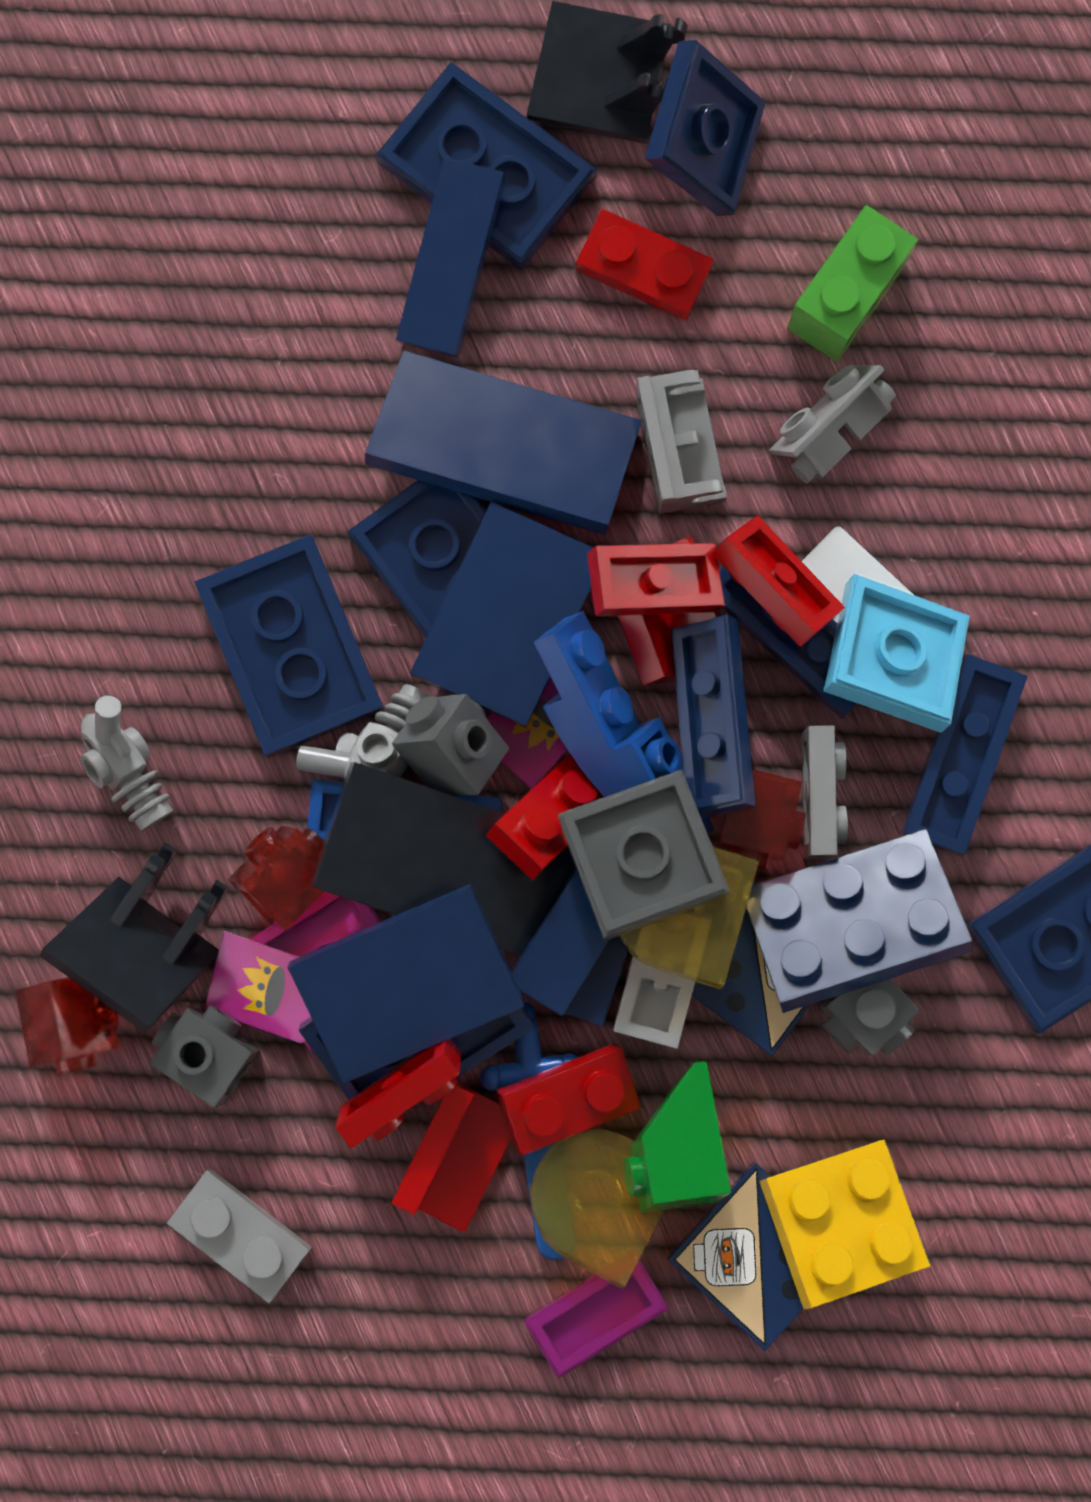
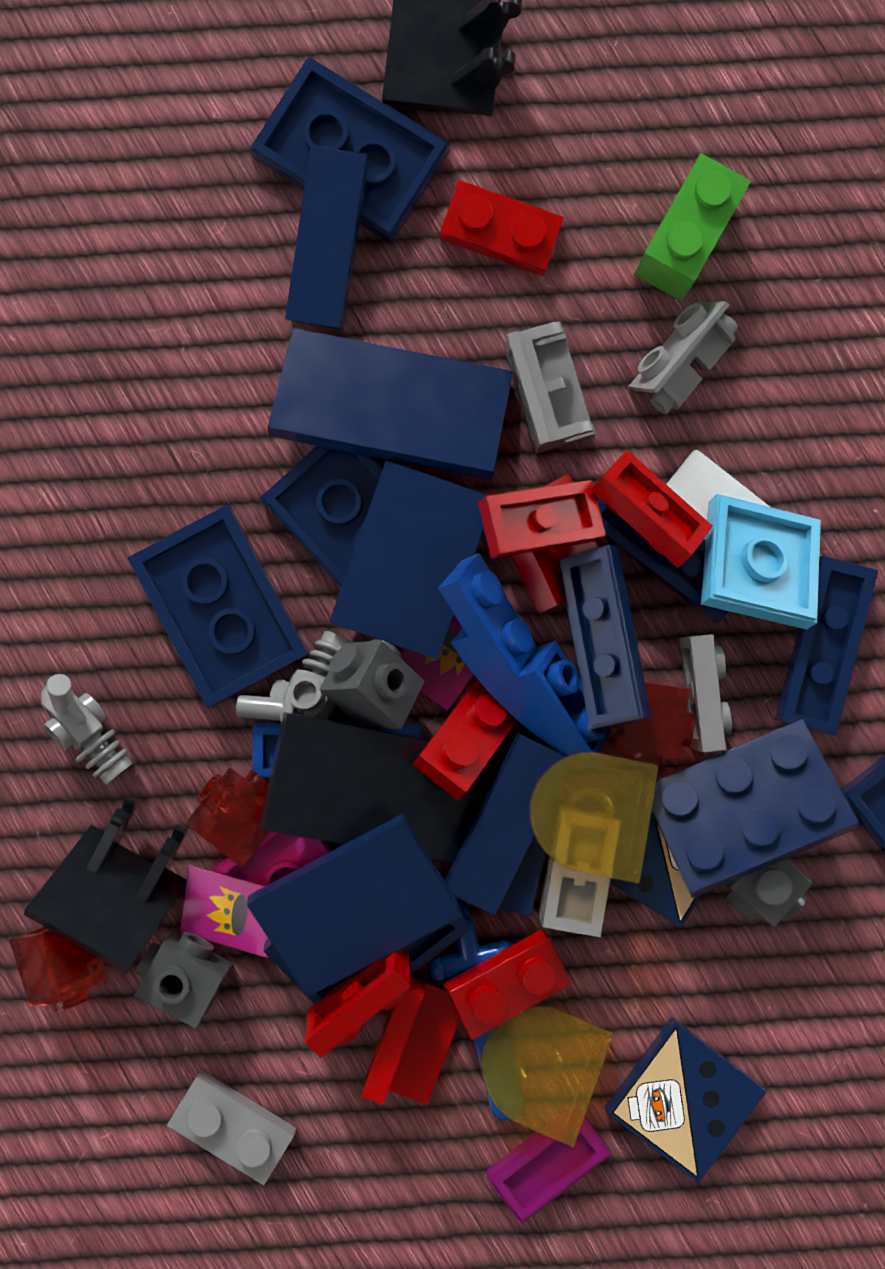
camera: 10 degrees left, 5 degrees up
(643, 855) = (555, 772): dark grey tile -> none
(680, 1149) = (609, 1021): green slope -> none
(705, 128) = (546, 95): dark blue tile -> none
(844, 1224) = (758, 1069): yellow plate -> none

